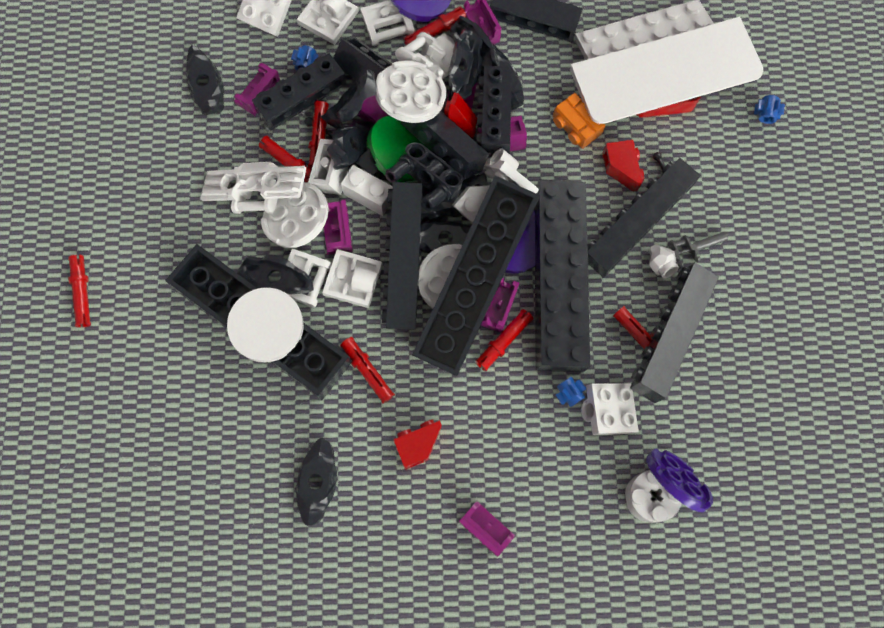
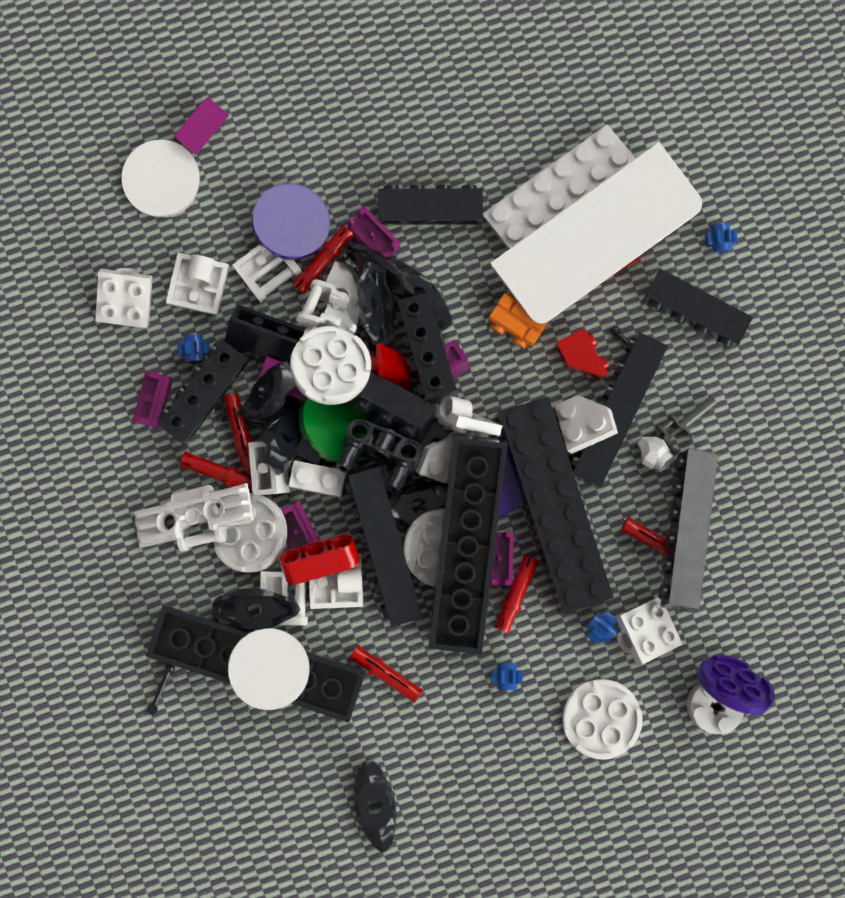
camera: 20 degrees left, 10 degrees up
(79, 290) = (52, 690): red pin -> none
(157, 334) = (153, 708): none -> black hinge
(208, 97) = (104, 427): black piece -> none
(344, 250) = (319, 559): none -> red beam
(417, 445) = (464, 735): red slope -> none
(472, 406) = (506, 676): none -> blue gear
(487, 529) = (561, 793): magenta hinge -> none
(545, 475) = (602, 719): none -> white tile
(610, 214) = (584, 422): none -> white plate
(733, 156) = (697, 309): none -> black brick

